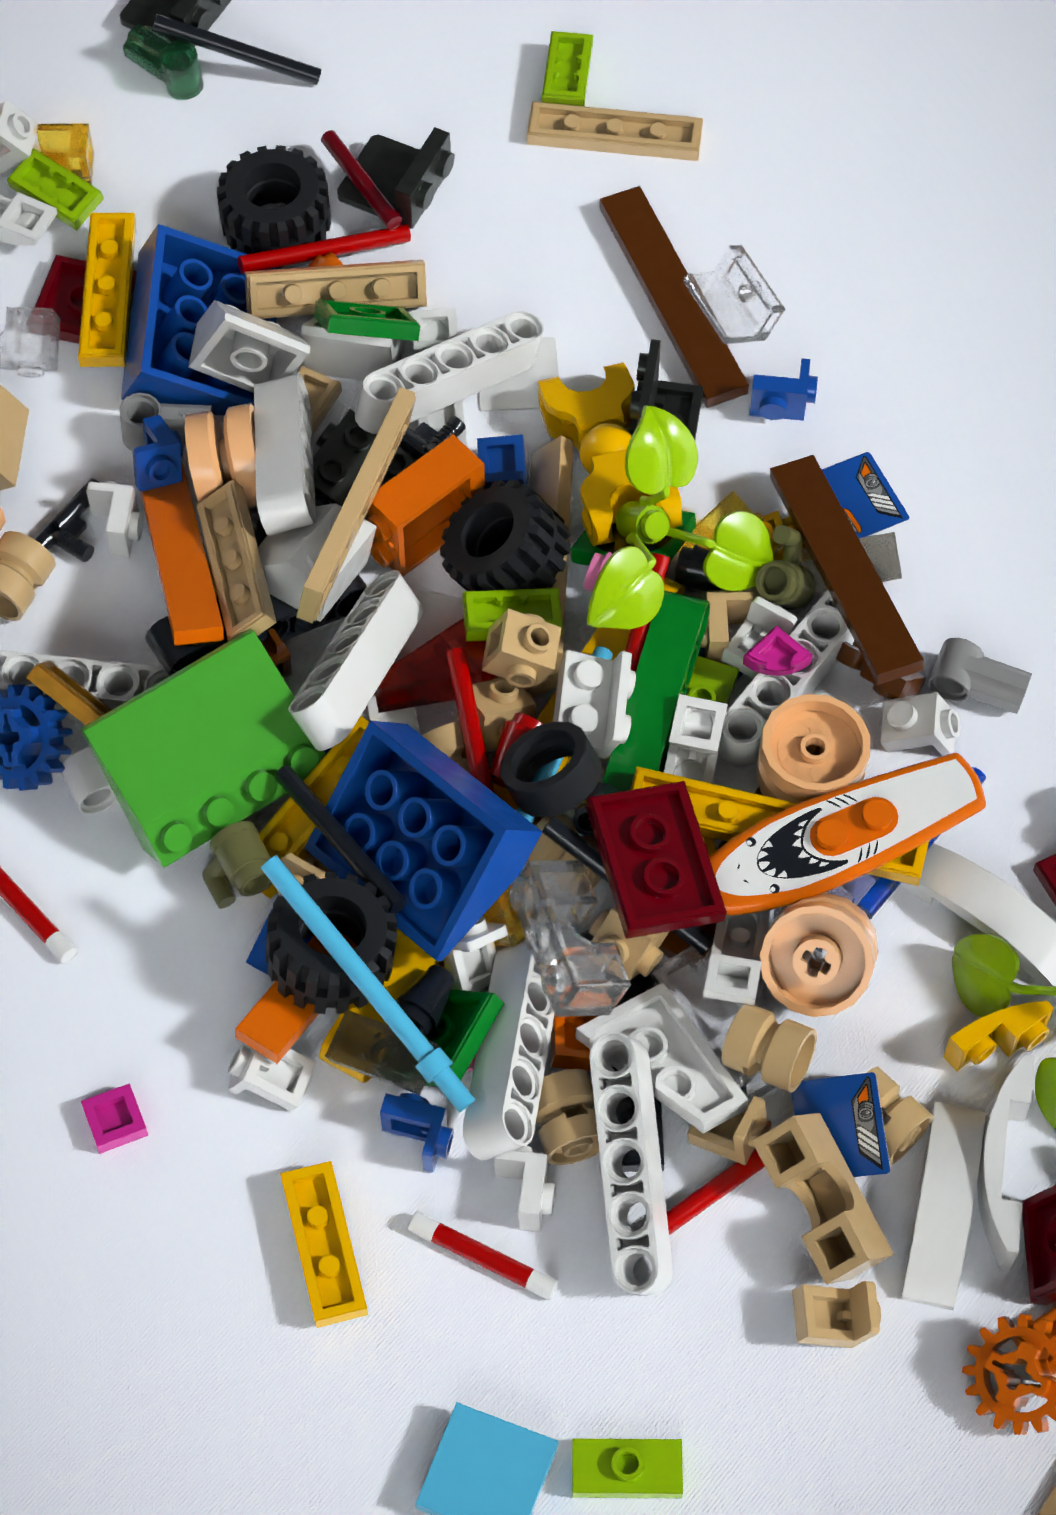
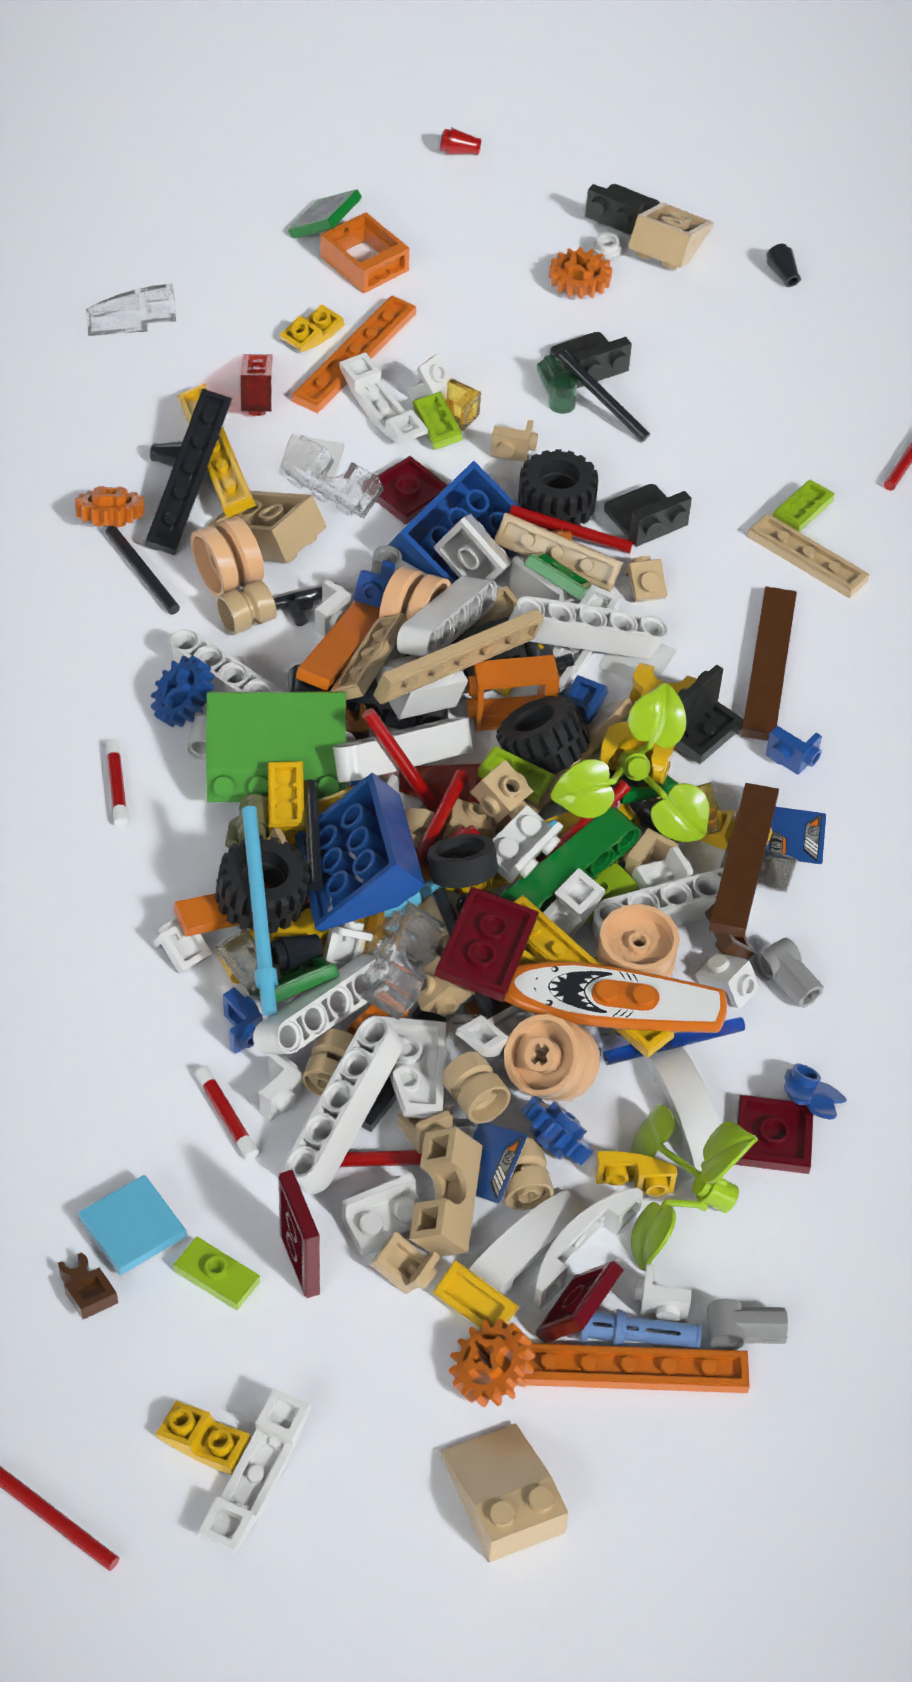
camera: 30 degrees right, 10 degrees down
(67, 692) = (219, 671): pearl gold tile -> none
(107, 290) = (423, 486): yellow tile -> none
(114, 1118) = (77, 920): dark pink tile -> none
(171, 171) = (513, 443): none -> tan bracket
(268, 806) = (286, 796): none -> yellow plate
(324, 1244) = (139, 1050): yellow plate -> none
(361, 180) = (623, 509): dark red bar -> none
(379, 680) = (400, 759): none -> red bar
(460, 265) = (646, 579): none -> tan bracket
(711, 1366) = (299, 1234): none -> dark red tile
(736, 298) = (804, 684): clear panel -> none
(763, 1270) = (380, 1212): none -> white bracket
(777, 655) = (661, 883): dark pink tile -> none
(786, 580) = (705, 851): olive piece -> none
(888, 1039) = (557, 1130): none -> blue gear
(941, 1304) = (474, 1296): none -> yellow tile

